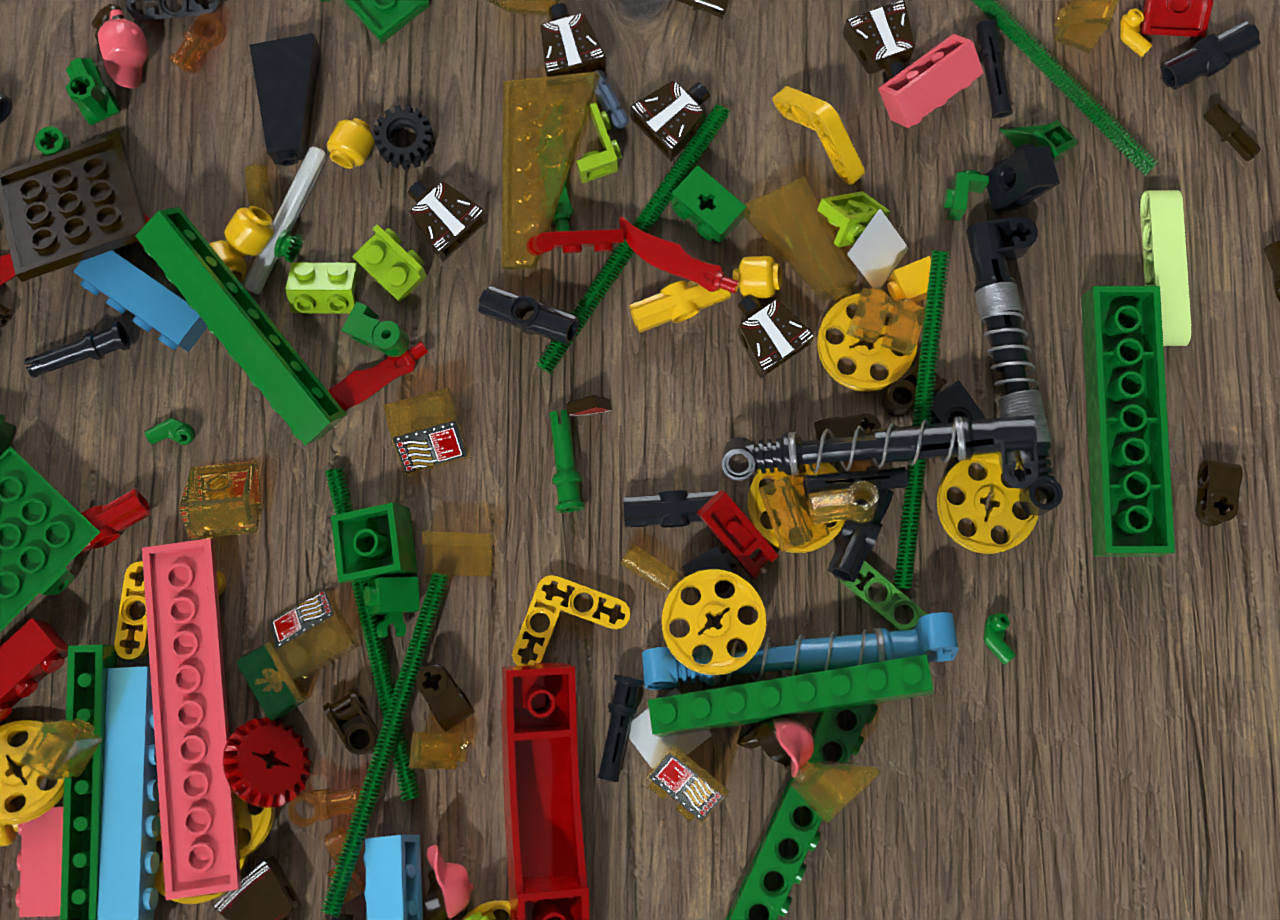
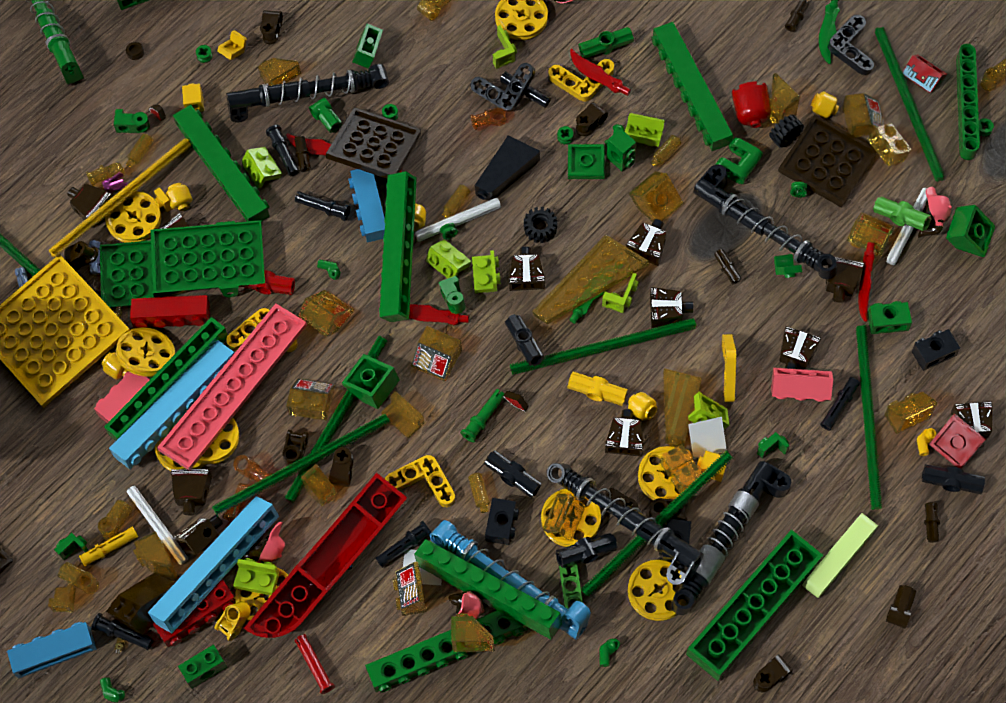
camera: 45 degrees right, 15 degrees down
(62, 748) = (174, 351): clear yellow brick -> none
(90, 92) = (424, 104): green piece -> none
(121, 46) = (454, 95): coral hair -> none
(248, 772) = (234, 428): red gear -> none
(249, 231) = (437, 211): yellow head -> none
(271, 682) = (276, 400): dark green piece -> none
(350, 143) = (514, 209): yellow head -> none
(393, 598) = (357, 410): green brick -> none
(573, 241) = (573, 325): red plate -> none
(610, 103) = (646, 280): sand blue axle -> none
(674, 260) = (610, 368): red sword -> none
(704, 190) = (649, 348): green brick -> none
(715, 639) = (492, 529): yellow wedge -> none
(737, 533) = (529, 505): red plate -> none
(841, 504) = (591, 530): clear yellow piece -> none
(879, 478) = (602, 524): black pin -> none
(1021, 177) = (802, 457): black brick -> none
(1050, 135) = (834, 456): green slope -> none

